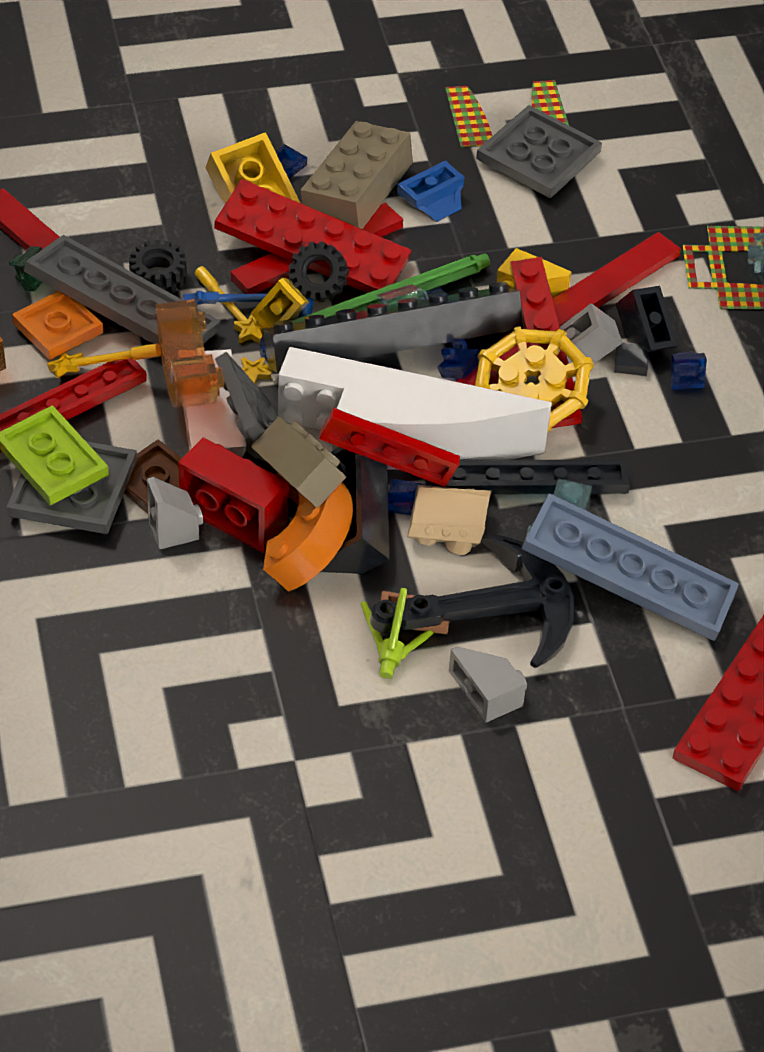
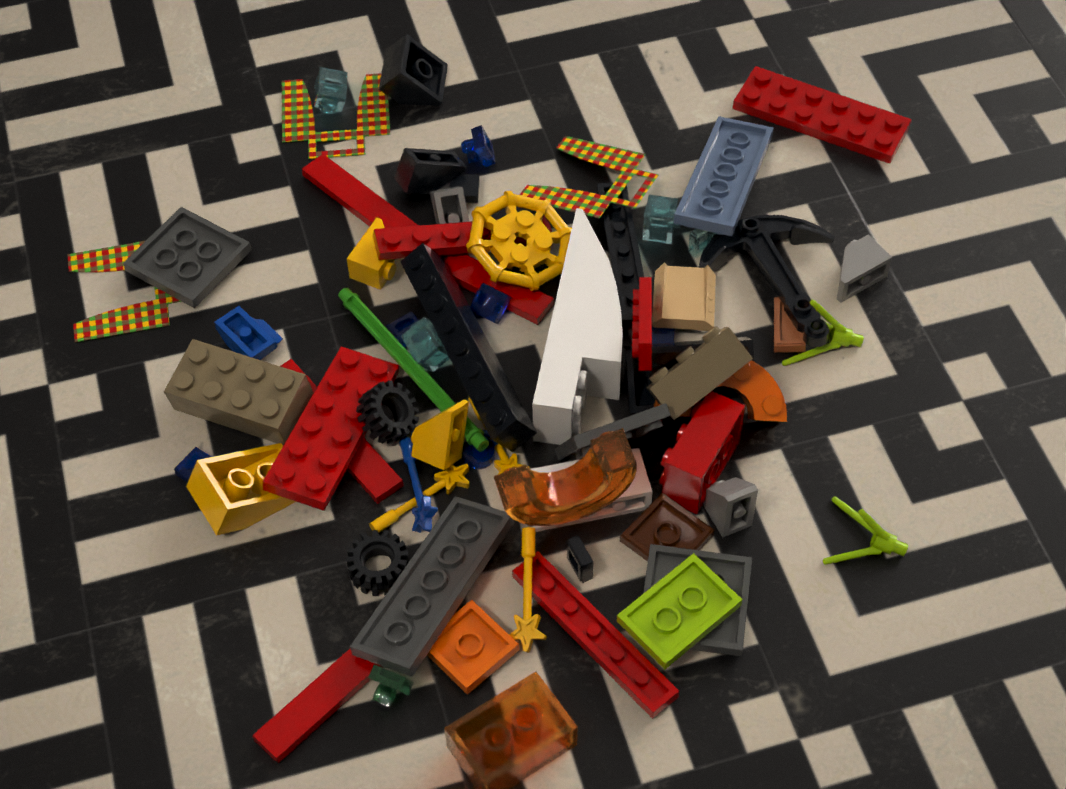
camera: 90 degrees left, 5 degrees up
(115, 641) = (880, 541): none -> lime plant
(133, 403) = (579, 559): none -> black tile
(669, 485) = (603, 155): none -> piece

